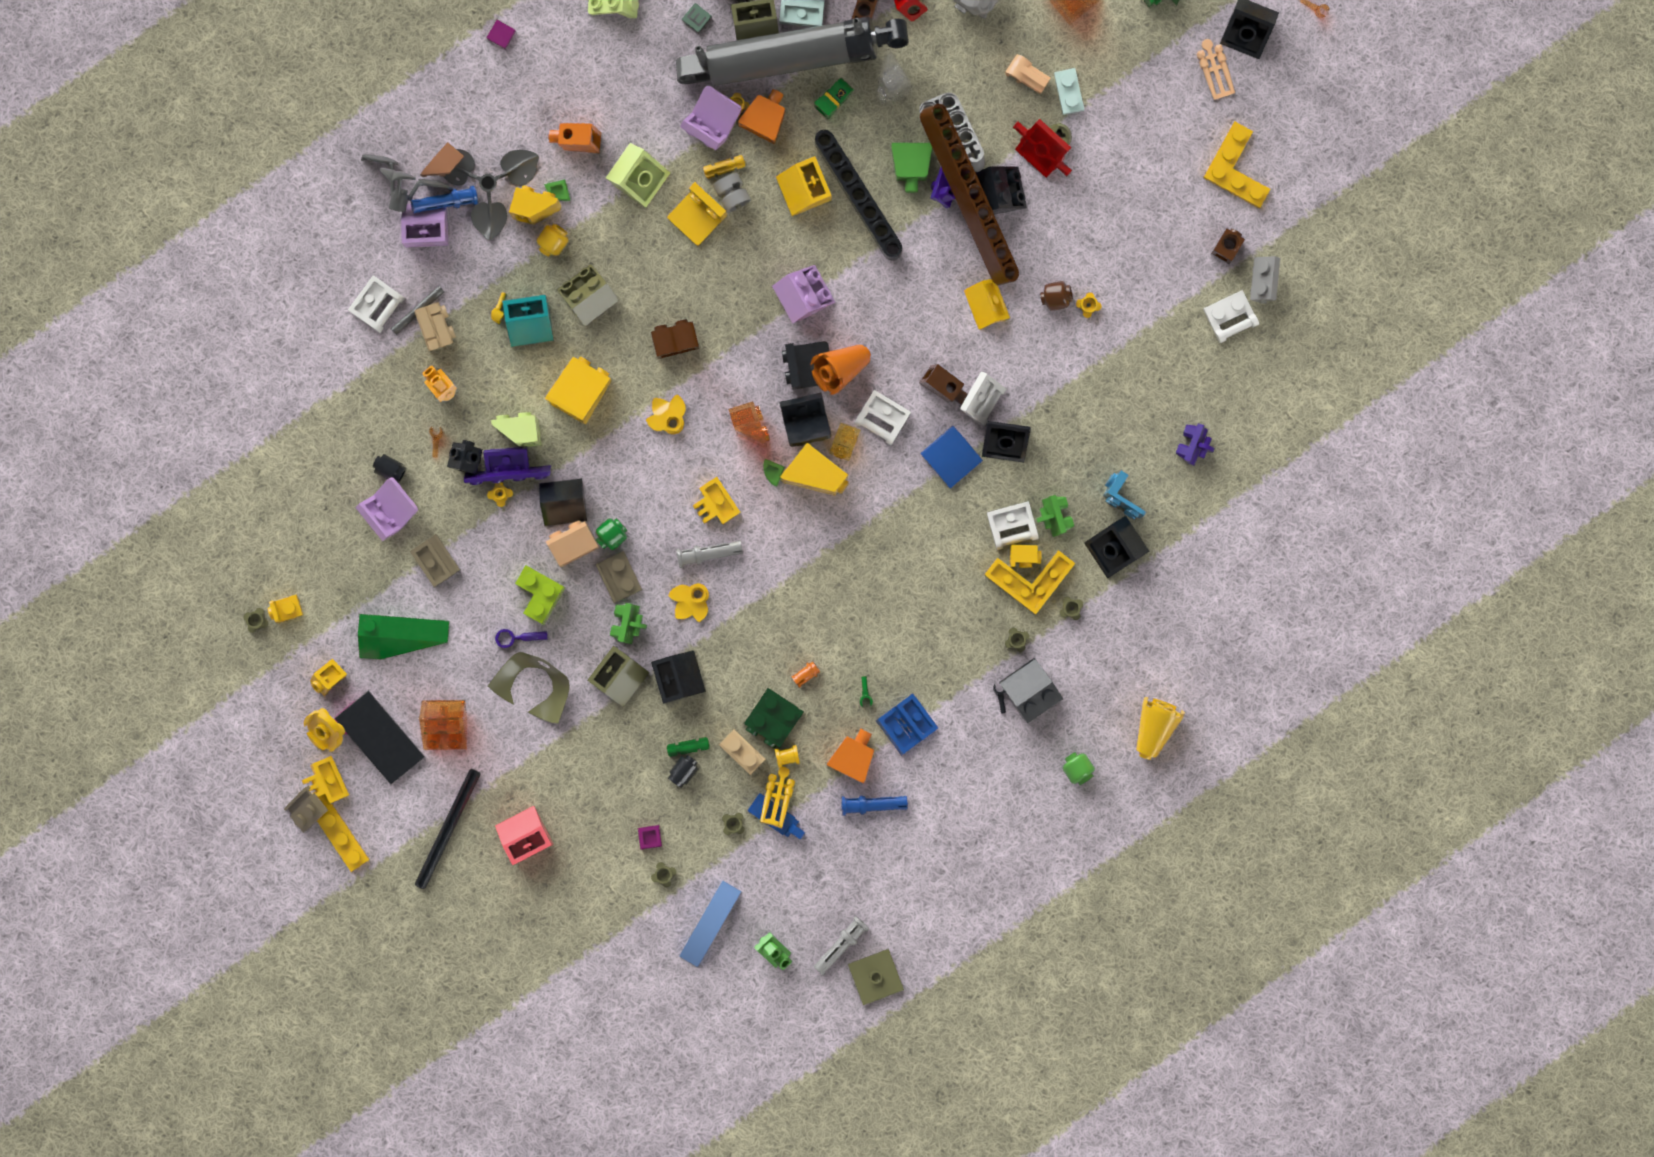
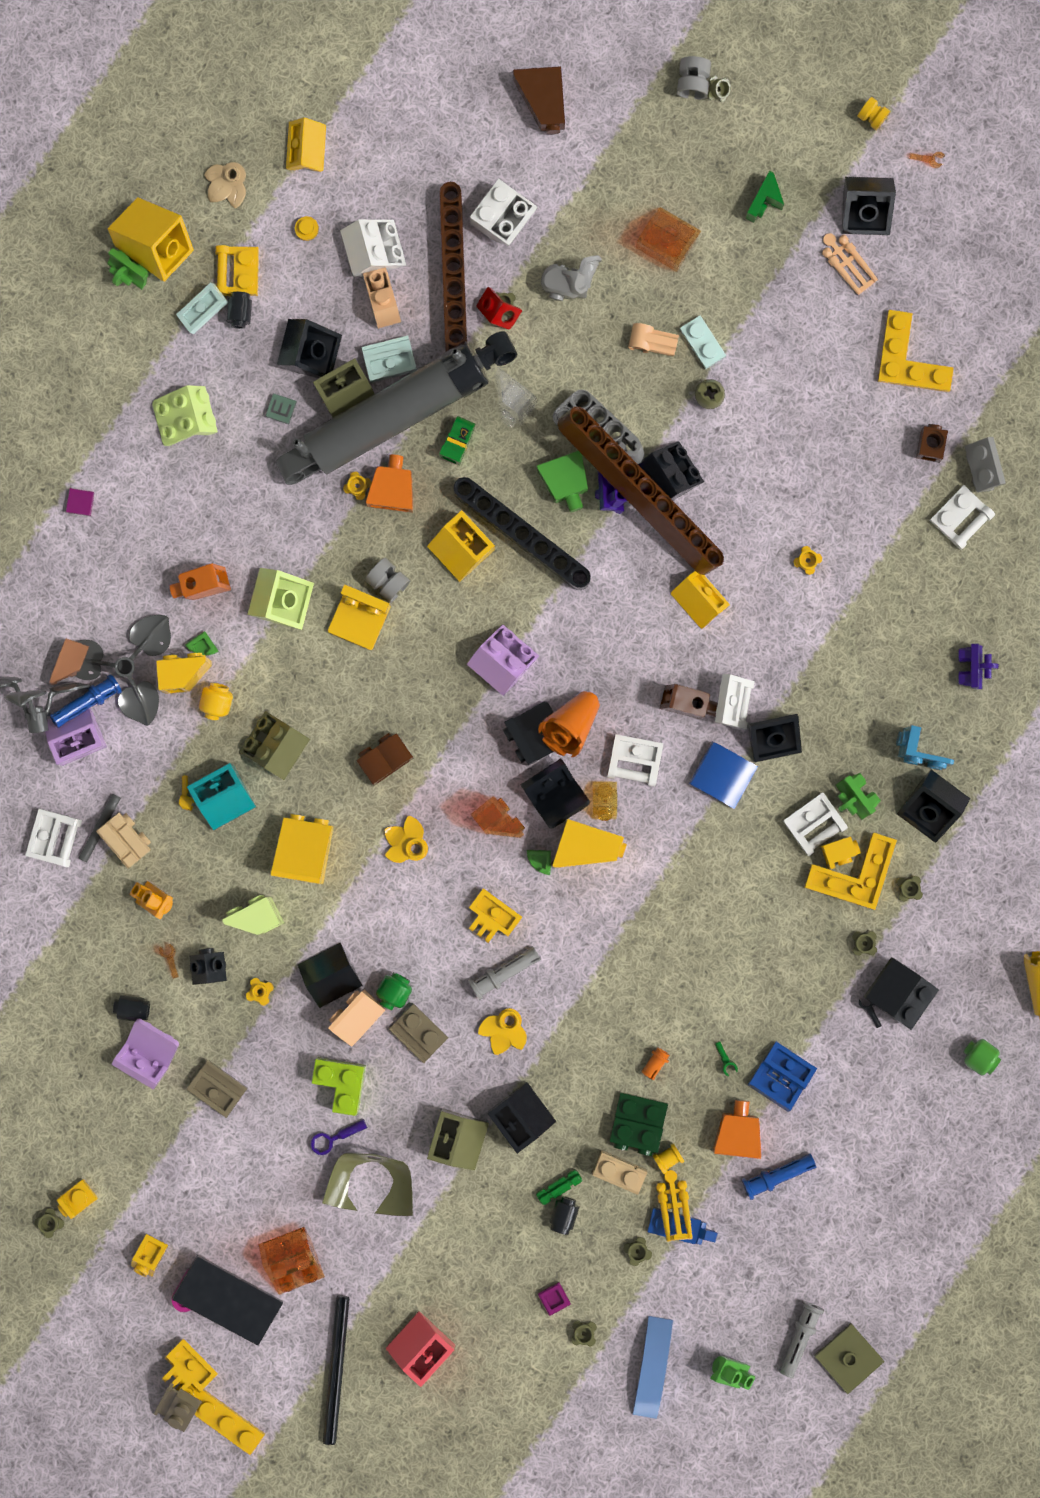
camera: 15 degrees left, 0 degrees up
(324, 730) = (165, 1315): yellow plate -> none
(392, 636) = (200, 1186): green wedge -> none
(505, 465) = (257, 958): dark purple bracket -> none
(630, 623) = (449, 1077): bright green hips -> none
(712, 118) = (337, 509): lavender bracket -> none
(724, 166) = (368, 555): yellow axle -> none
(1042, 148) = (698, 412): red plate -> none
(1056, 295) = (771, 563): reddish brown head -> none

